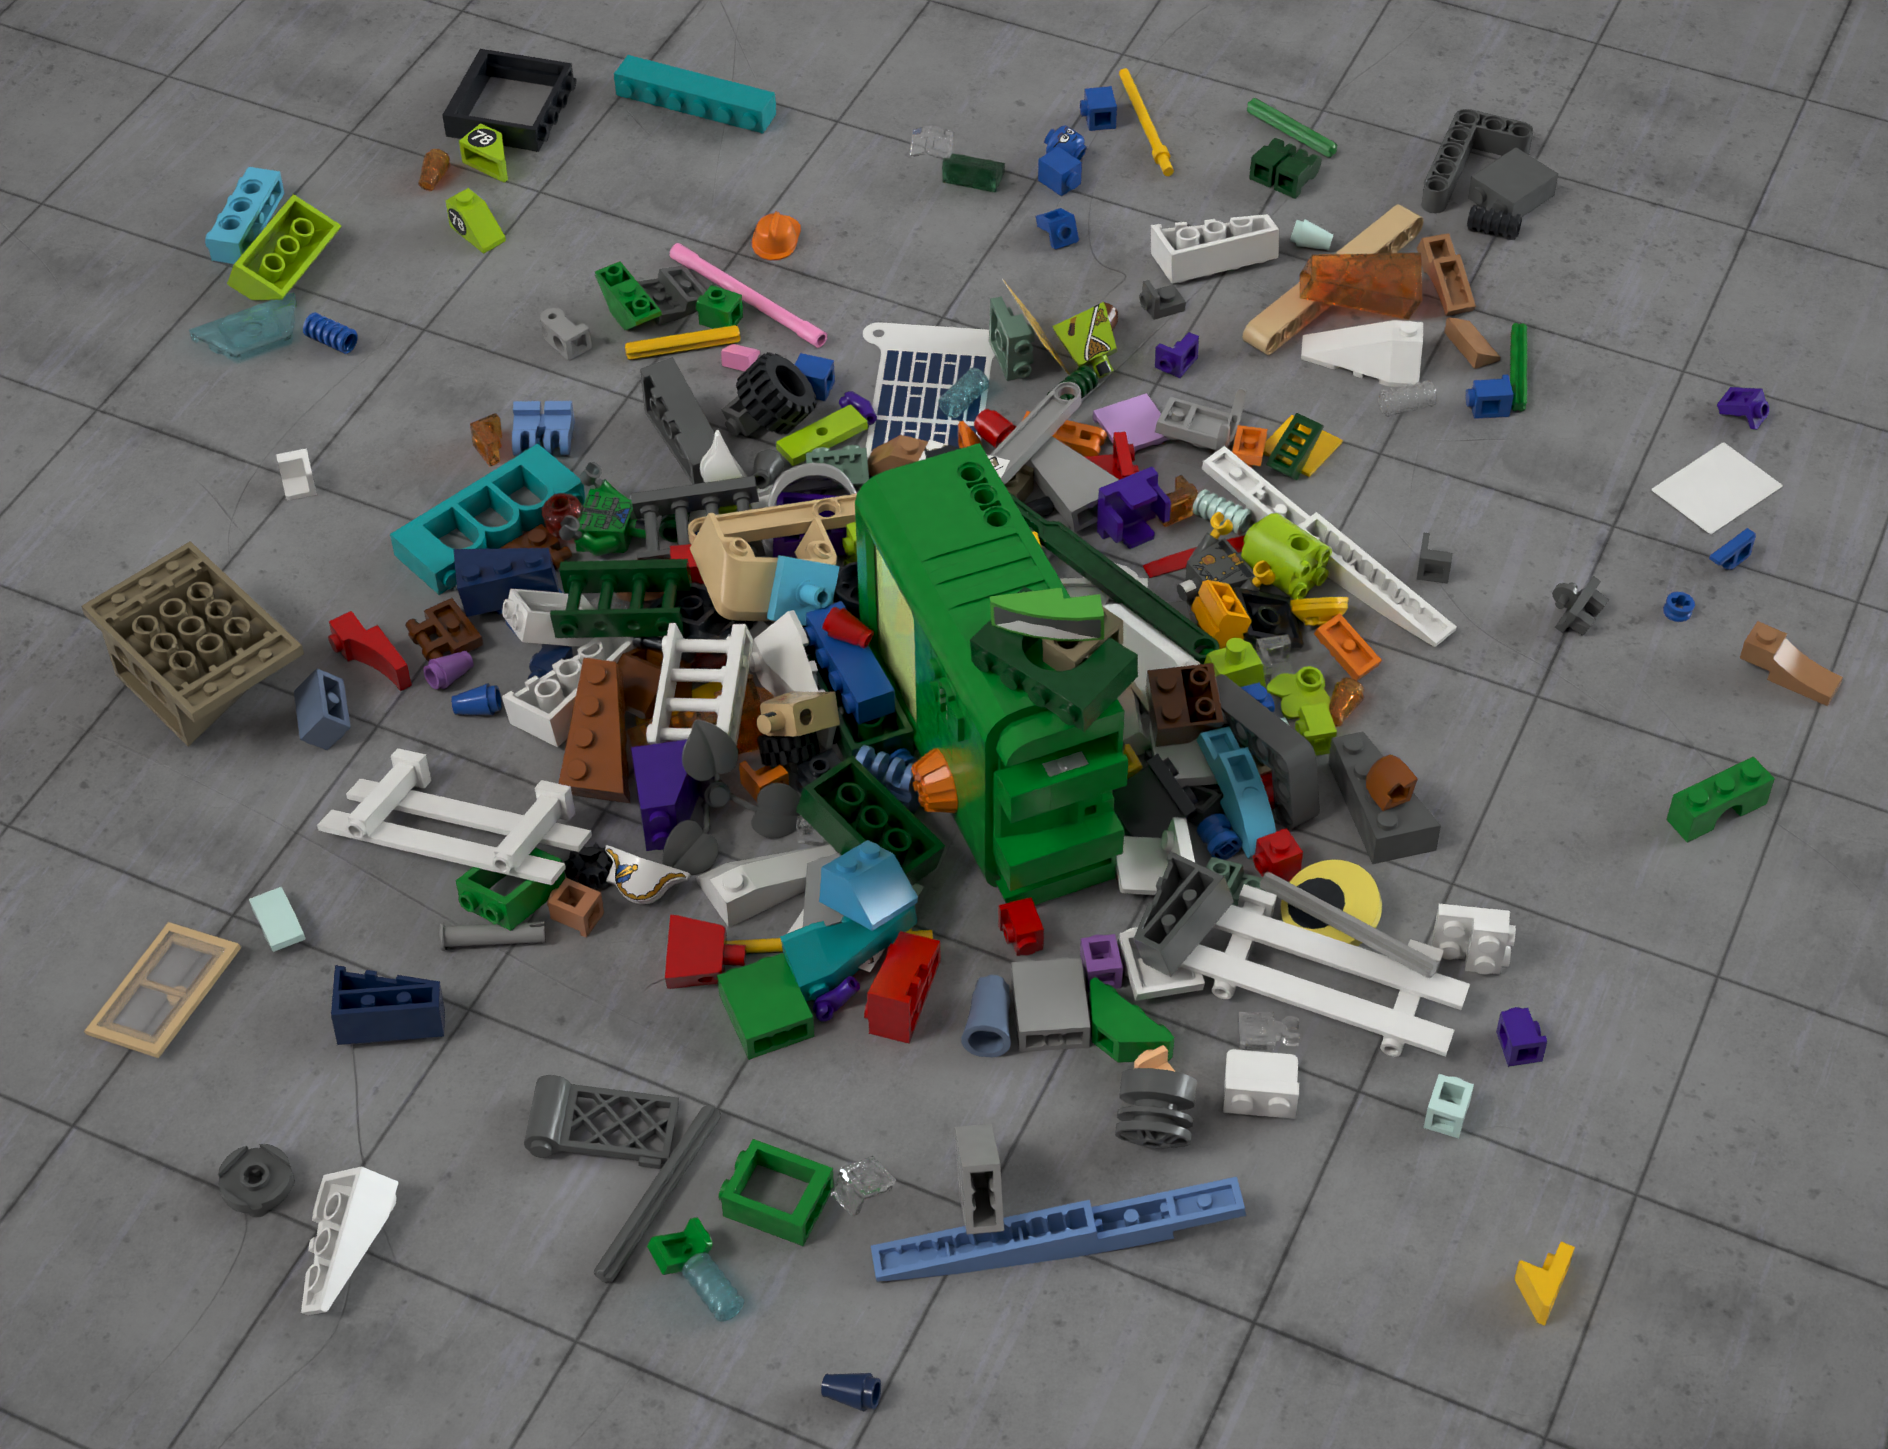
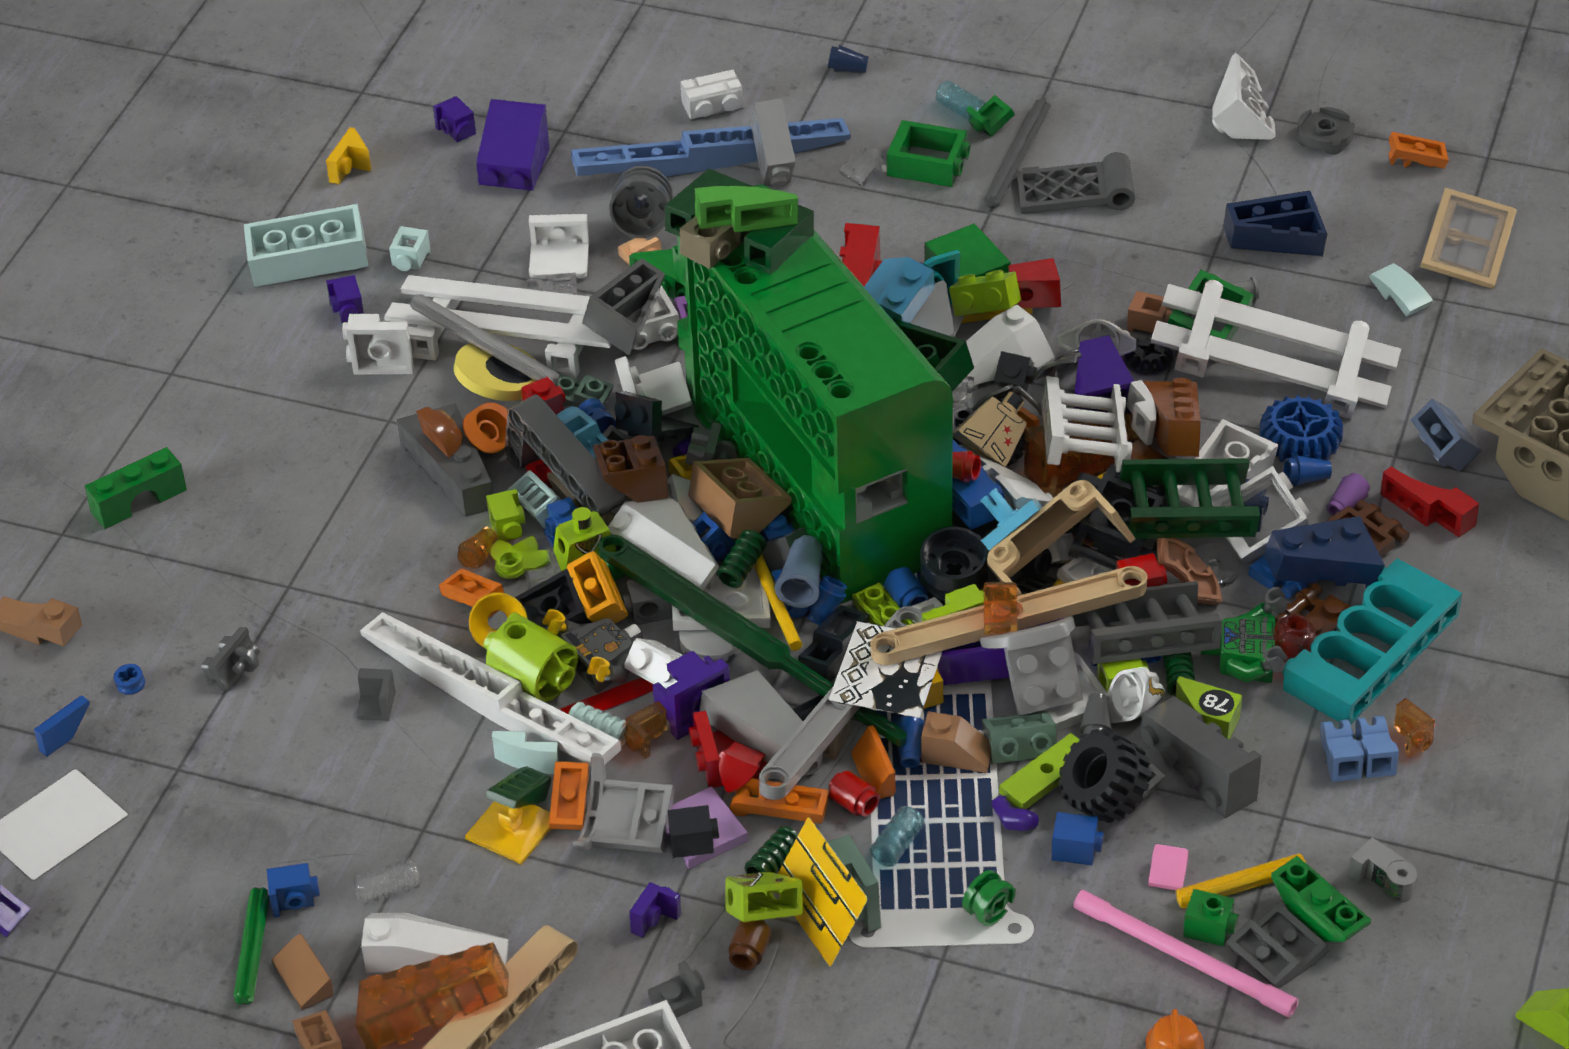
camera: 175 degrees right, 5 degrees down
(161, 1115) = (1417, 149): none -> orange plate
(465, 743) = (1302, 428): none -> blue gear
(629, 726) = (1143, 409): none -> white slope
(657, 467) = (1212, 703): none -> lime slope
(749, 832) = (1014, 370): none -> black brick
(759, 917) = (984, 293): none -> lime brick
(837, 495) = (1000, 607): none -> clear orange bracket
(897, 329) = (988, 897): none -> green wheel
(1049, 1337) = (711, 94): none -> white brick
(1094, 443) = (739, 765): none -> red tile
(1142, 395) = (692, 831): none -> black brick
(1158, 540) = (650, 661): none -> white brick
(1298, 490) = (514, 750): none -> light aqua slope
(1322, 1254) = (513, 145): none -> dark purple slope
(1338, 818) = (486, 427): none -> orange piece
(1405, 1334) = (454, 119): none -> dark purple brick
(1582, 1117) = (305, 245): none -> light aqua brick

